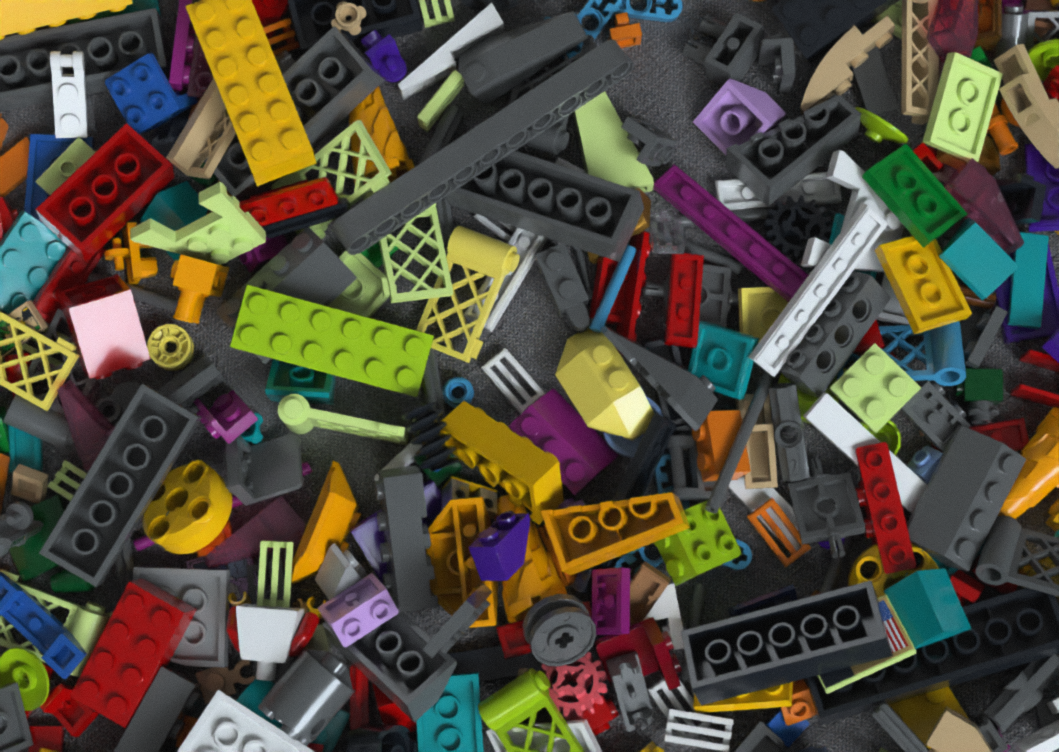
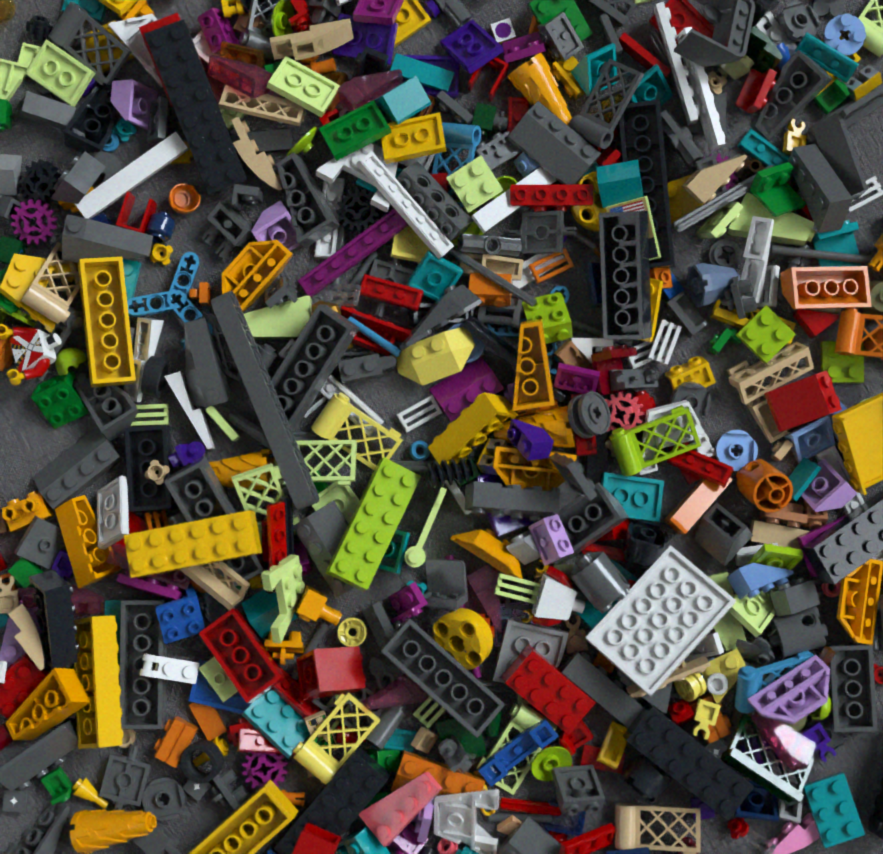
camera: 80 degrees left, 5 degrees up
(671, 97) = (254, 270): none -> light orange wedge

